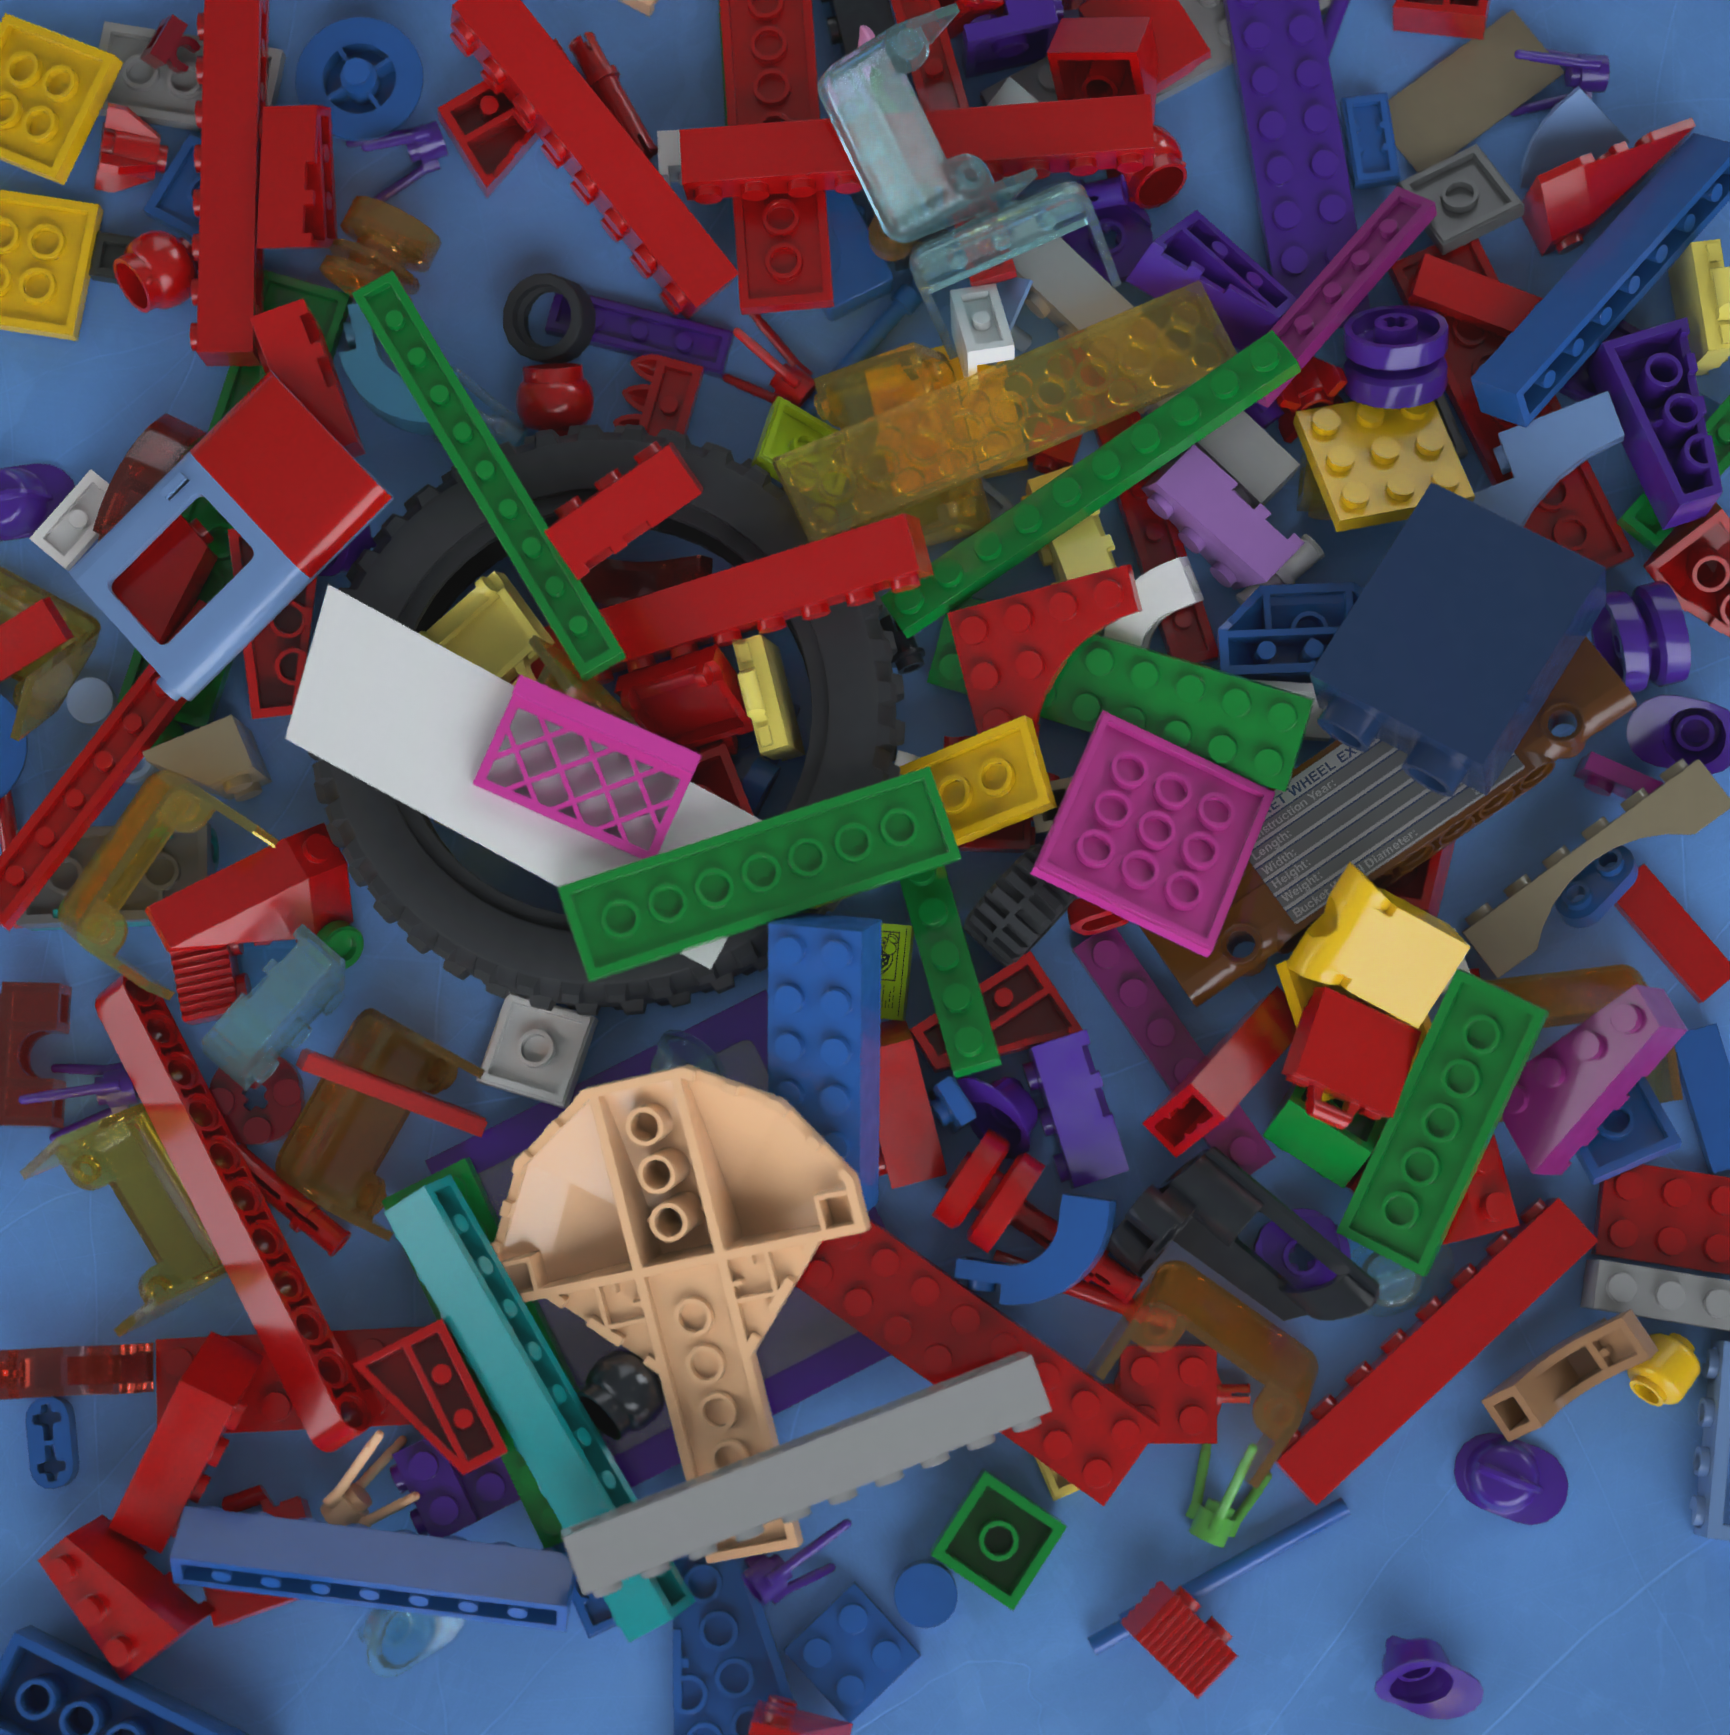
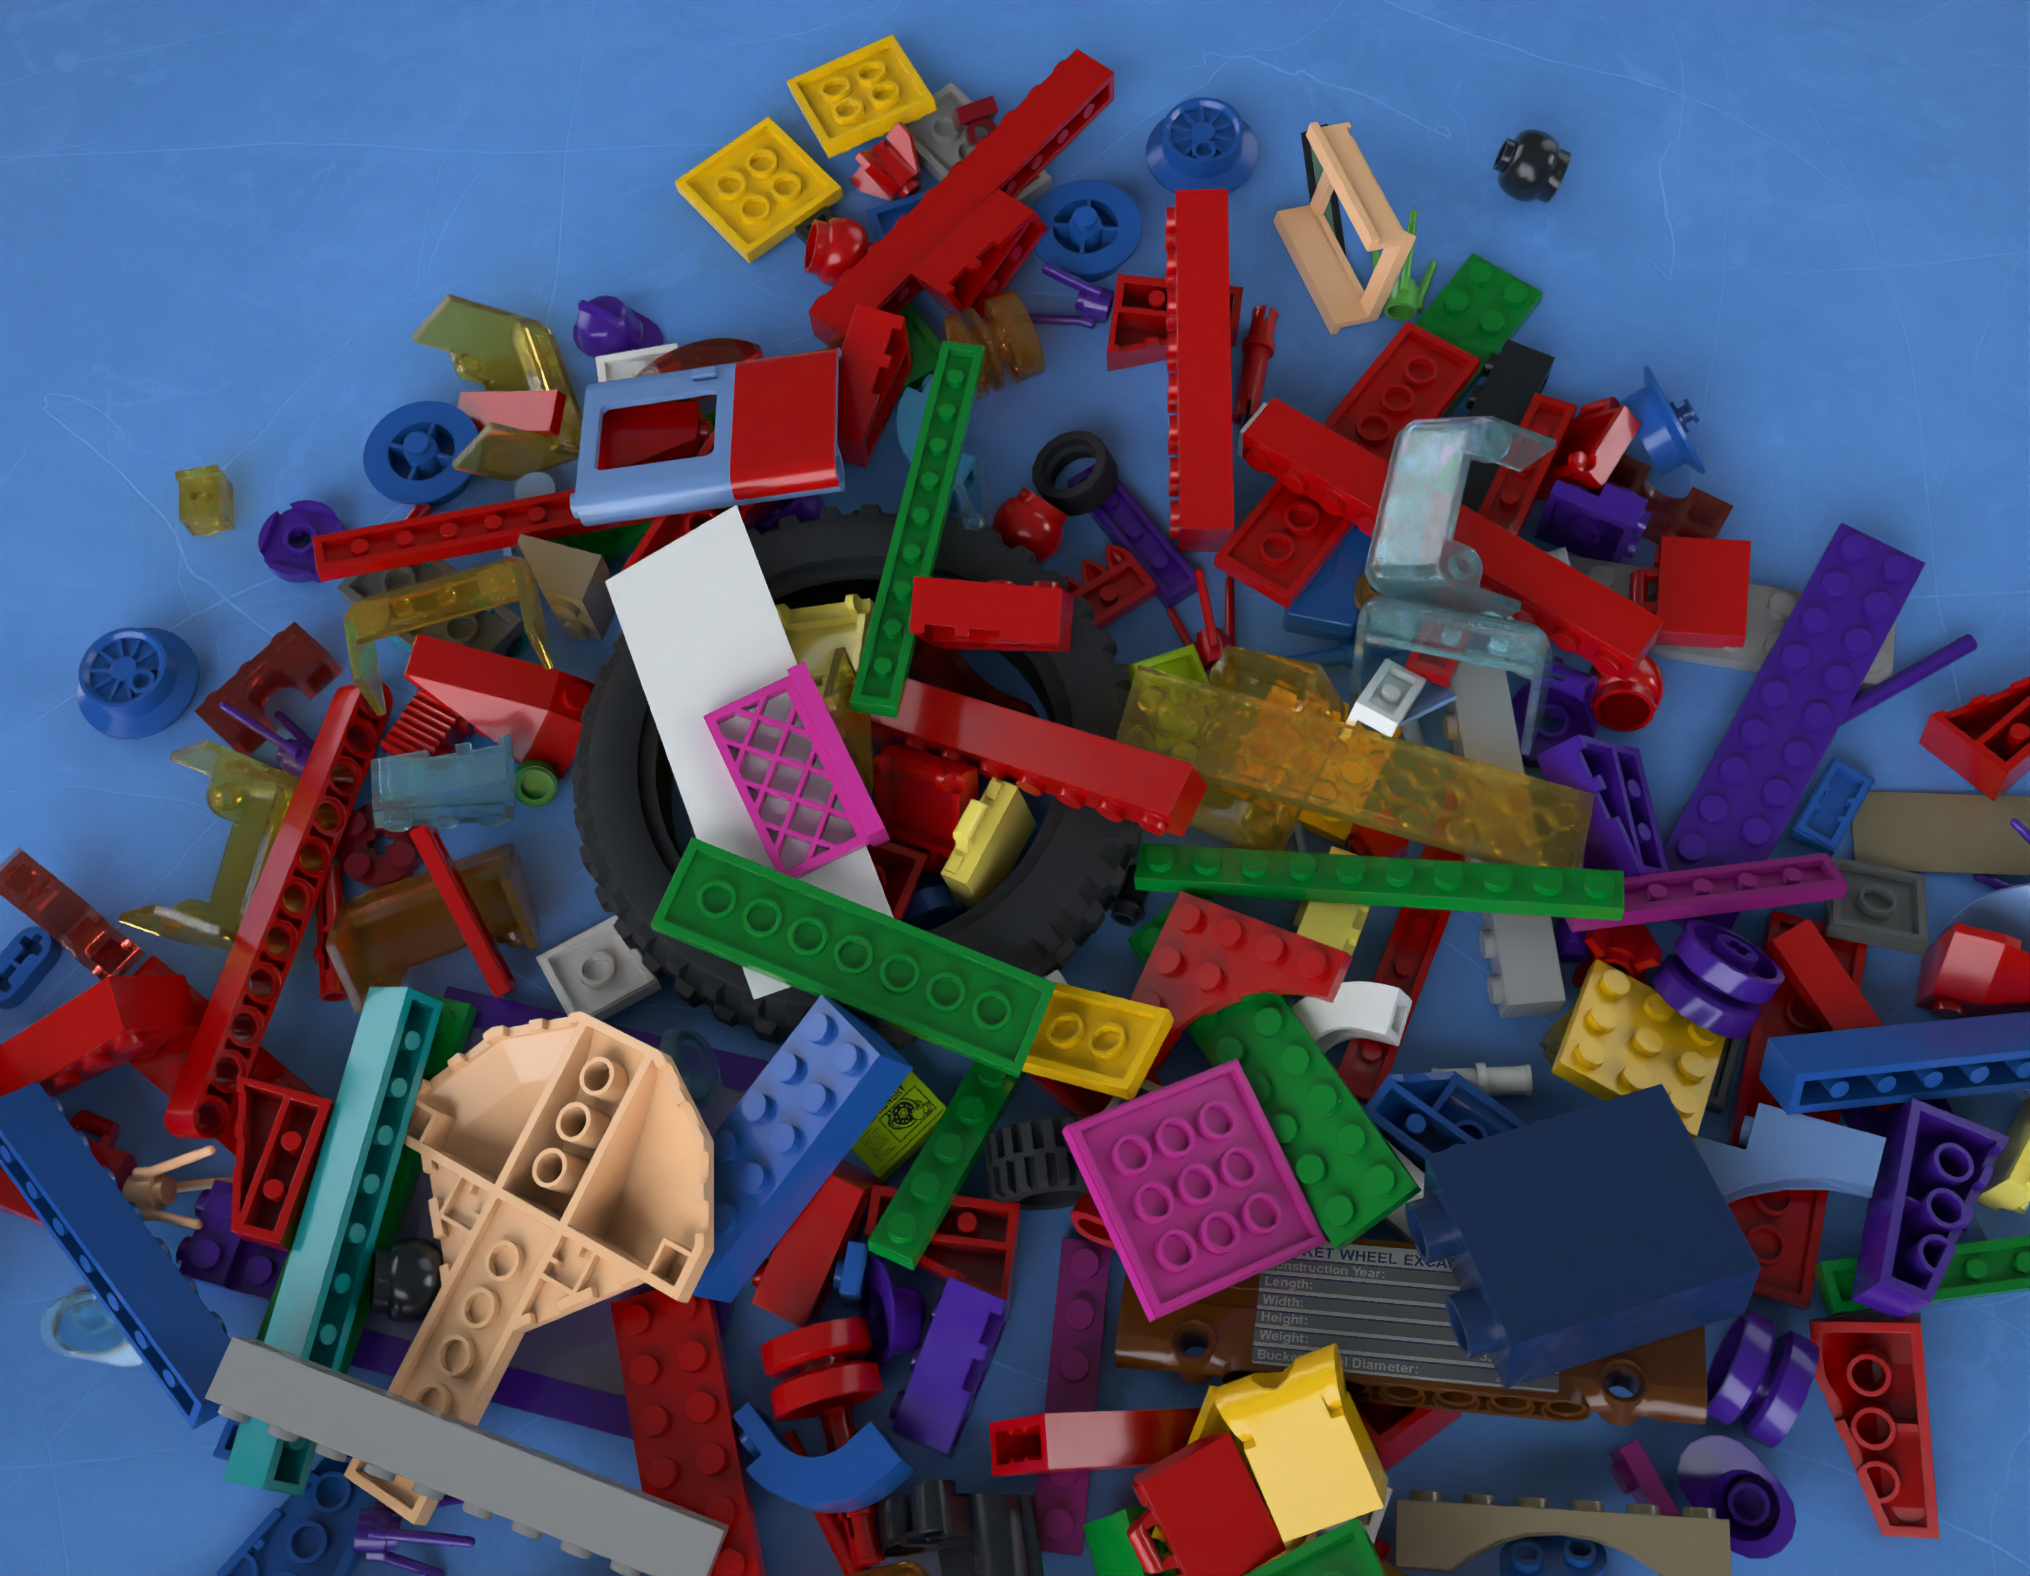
camera: 45 degrees right, 15 degrees down
(1104, 58) = (1655, 579): red slope -> none
(1218, 521) = (1460, 991): medium lavender wedge -> none

